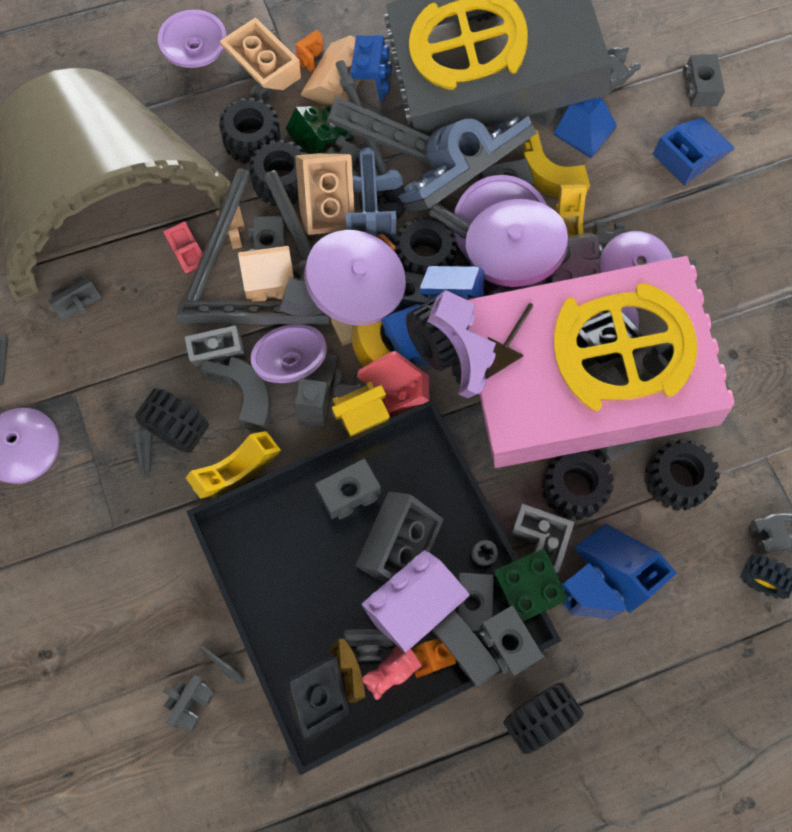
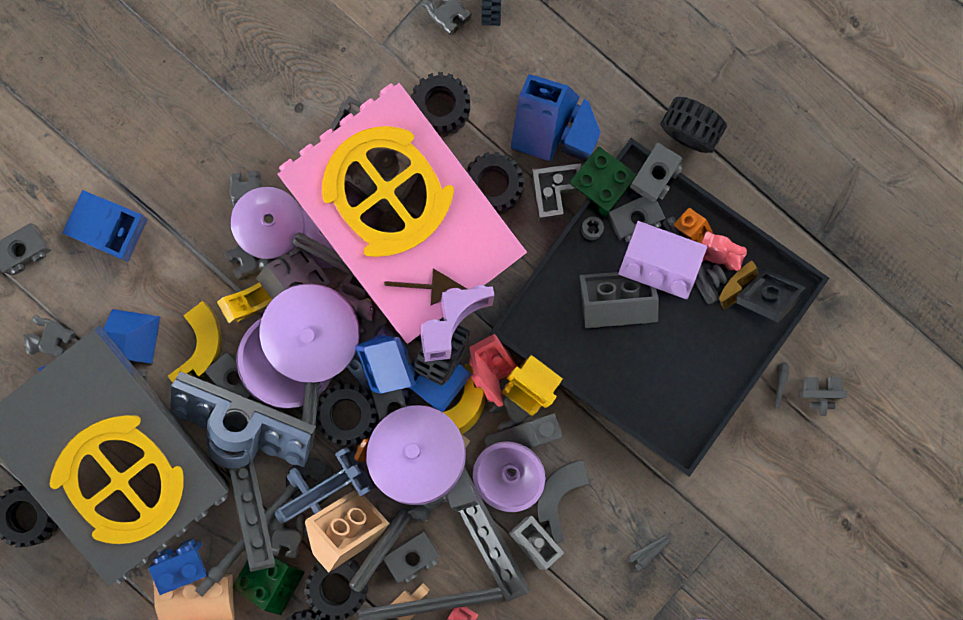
camera: 115 degrees left, 15 degrees up
(172, 420) = (622, 535): black tyre -> none
(237, 469) = (630, 463): yellow arch -> none
(265, 273) = (447, 536): light nougat slope -> none
(357, 476) = (592, 356): dark grey brick -> none
(466, 649) = (678, 203): dark grey slope -> none

